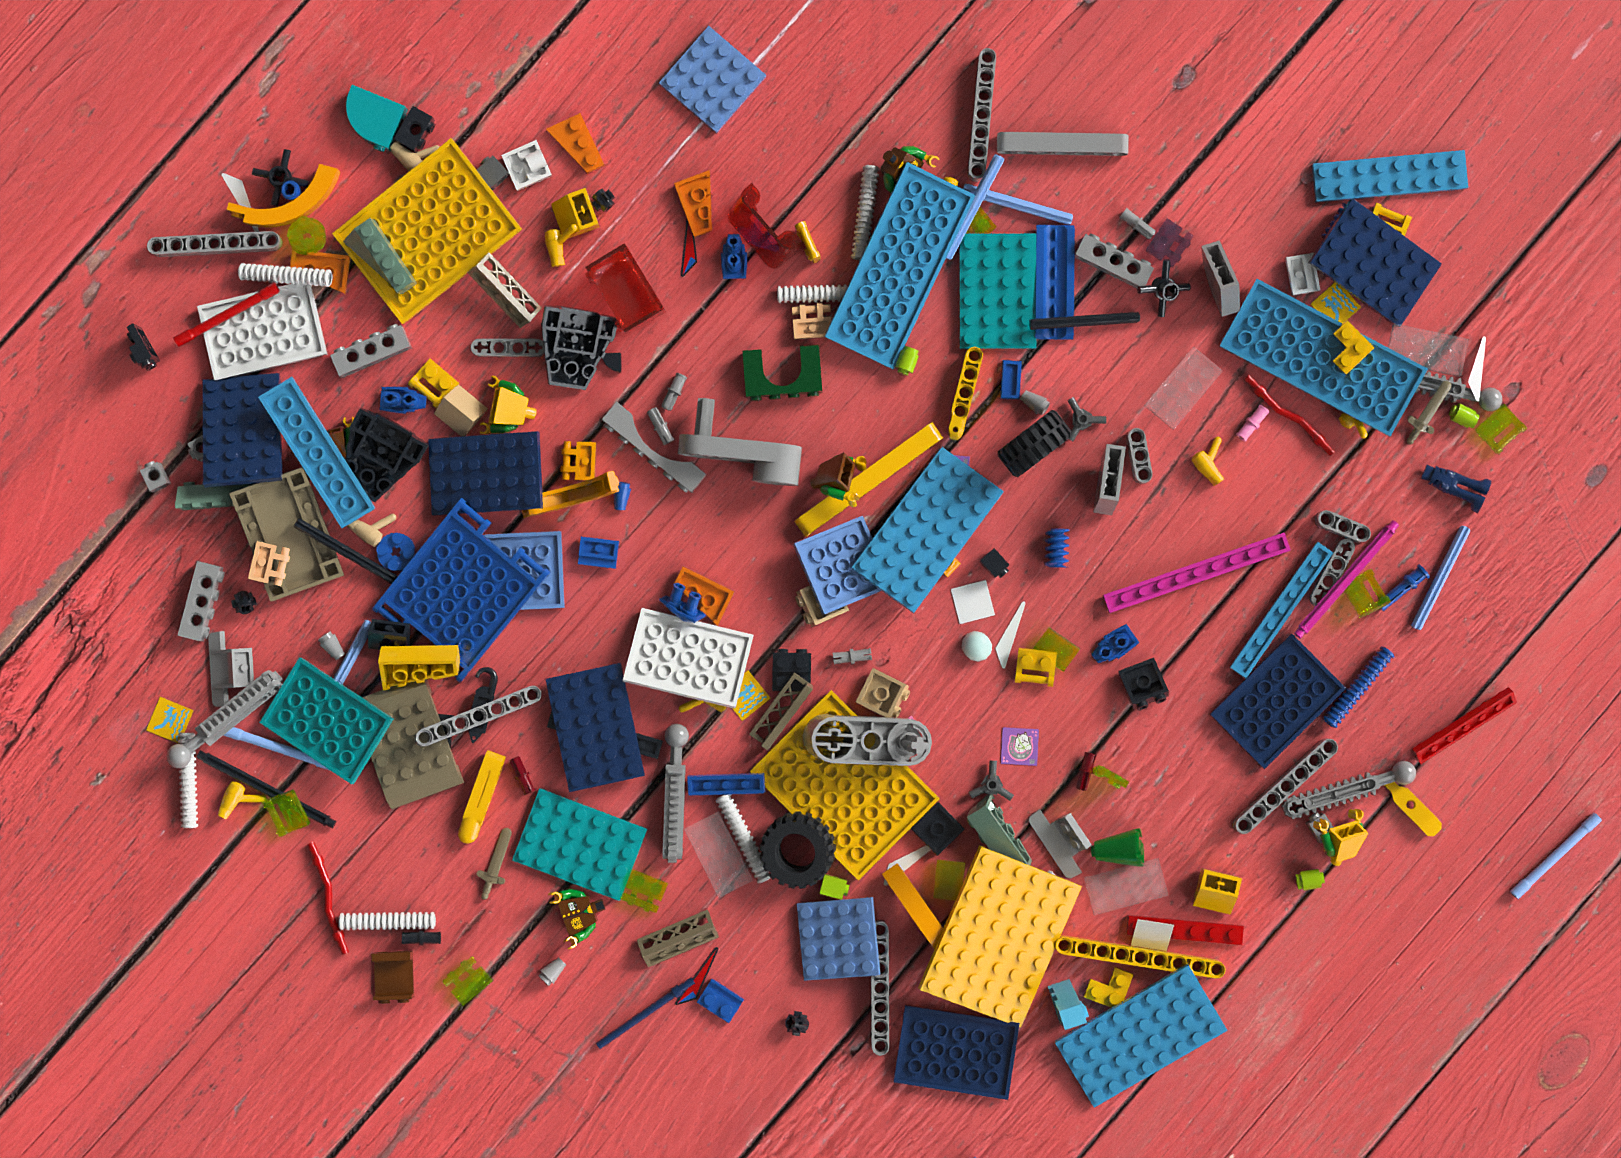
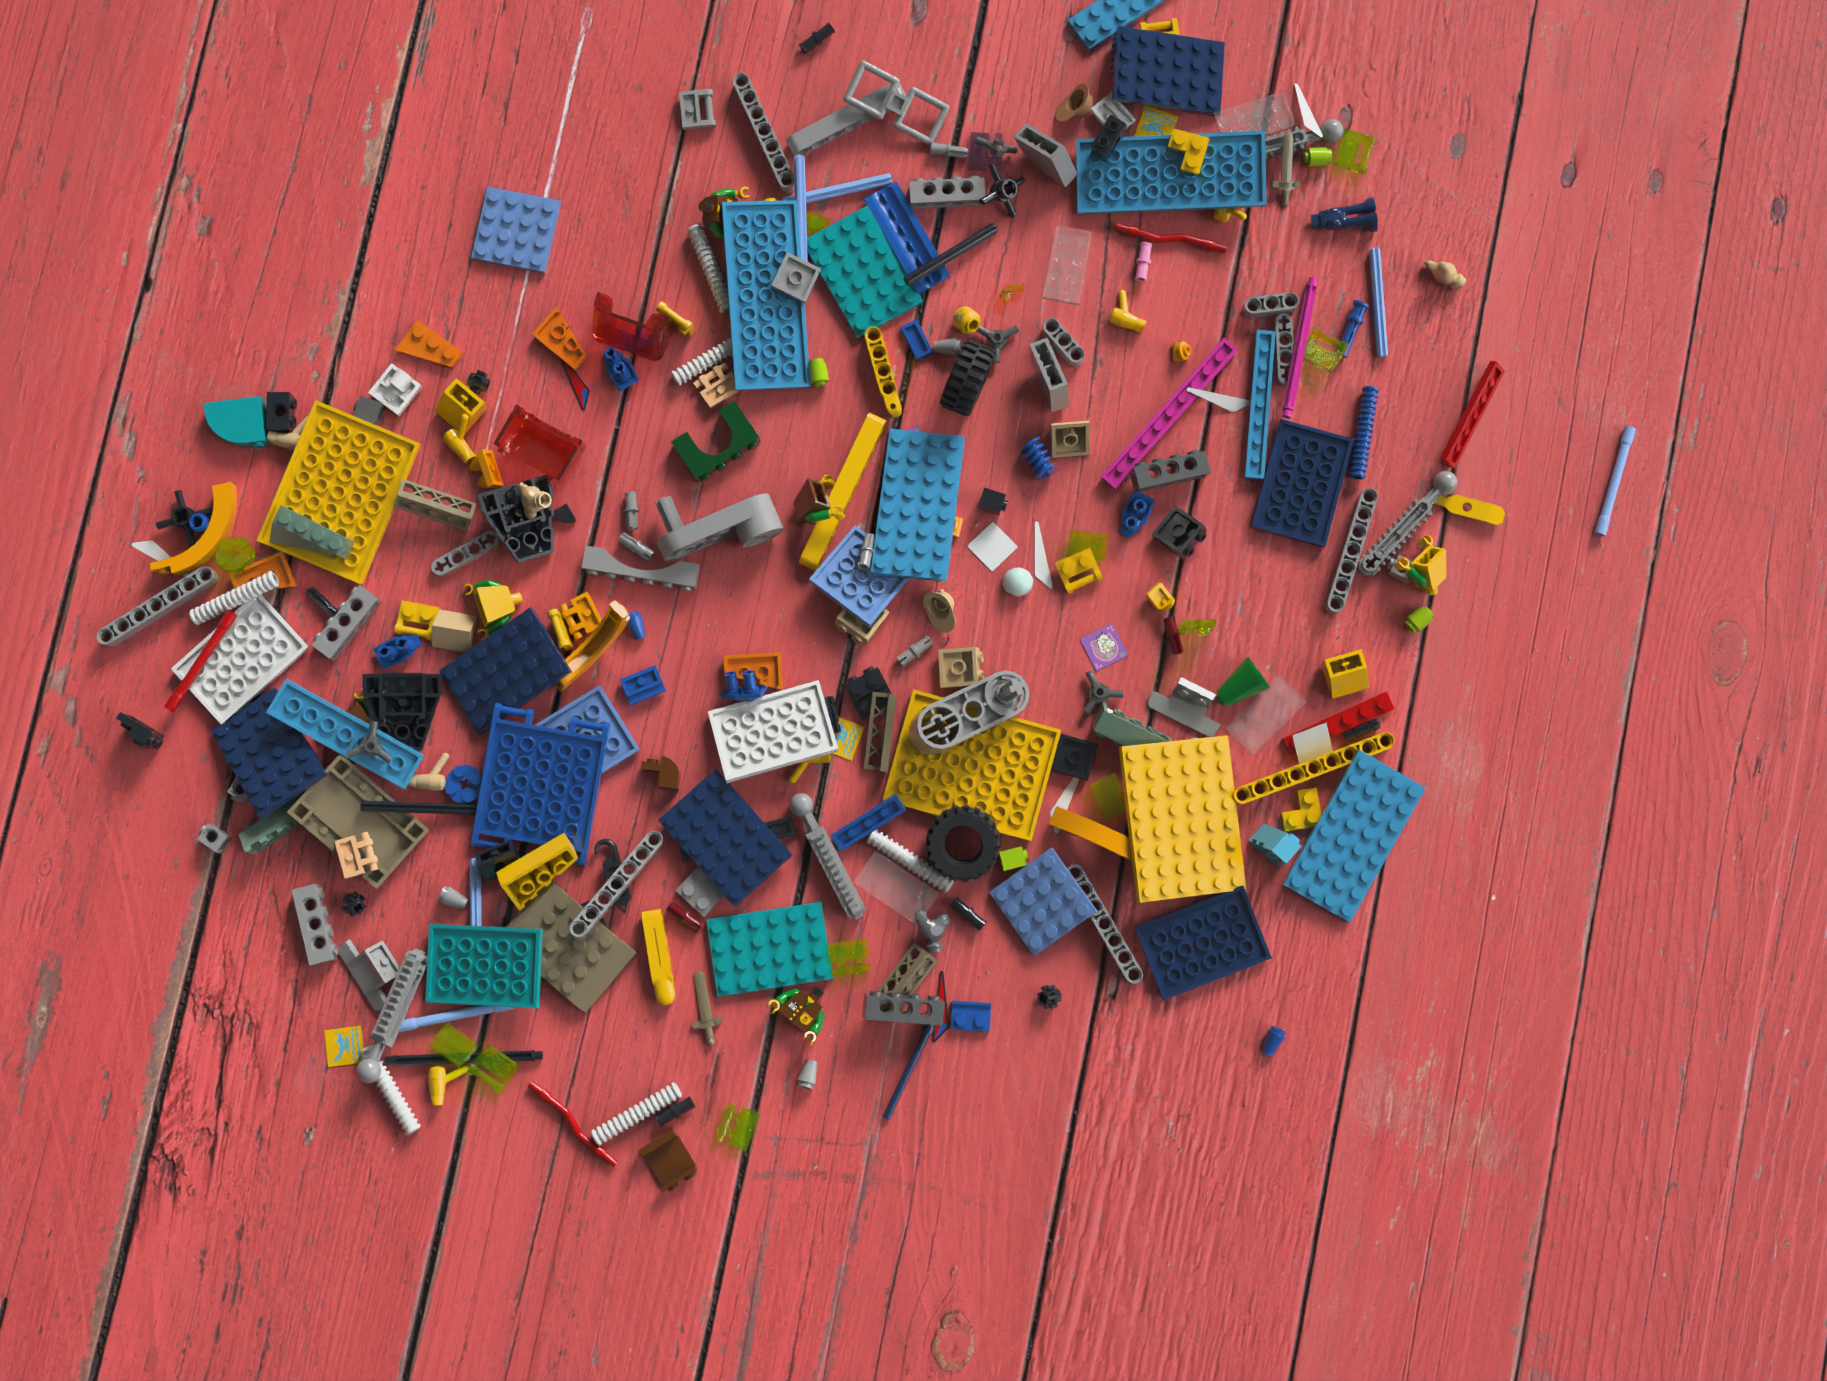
camera: 25 degrees left, 5 degrees down
(263, 773) = (453, 1045): none -> clear neon green plate
(333, 476) = (370, 745): none -> dark grey piece
(359, 319) = (321, 601): none -> black axle
(547, 761) = (700, 892): none -> light grey plate
(553, 464) = (560, 629): none -> yellow plate
(570, 277) = (487, 464): none -> light orange tile
(577, 643) = (668, 772): none -> reddish brown brick
(592, 335) = (533, 499): none -> tan animal
(685, 983) = (932, 1016): none -> dark grey brick
(729, 908) = (932, 930): none -> dark grey animal
(749, 671) = (833, 715): none -> black axle
(768, 911) = (968, 913): none -> black pin
(858, 546) = (866, 552): none -> light grey axle
(894, 633) = (940, 610): none -> tan piece
(928, 56) = (691, 110): none -> light grey plate
(934, 266) = (795, 277): none -> light grey plate
(1064, 388) = (966, 320): none -> yellow head
(1078, 53) = (816, 38): none -> black pin
(1093, 731) = (1160, 597): none -> yellow plate
(1095, 546) = (1070, 439): none -> tan slope
(1114, 155) = (896, 103): none -> light grey bar
(1117, 381) = (1009, 289): none -> clear yellow arm
(1181, 247) = (997, 147): none -> dark grey piece
(1194, 635) = (1143, 482): none -> dark grey brick
(1202, 947) = (1362, 730): none -> black axle
(1239, 522) = (1181, 351): none -> light orange plate
(1250, 587) = (1230, 403): none -> white sticker
(1276, 245) = (1075, 104): none -> medium nougat piece
(1285, 295) = (1108, 137): none -> black brick
(1516, 587) = (1446, 273): none -> tan animal

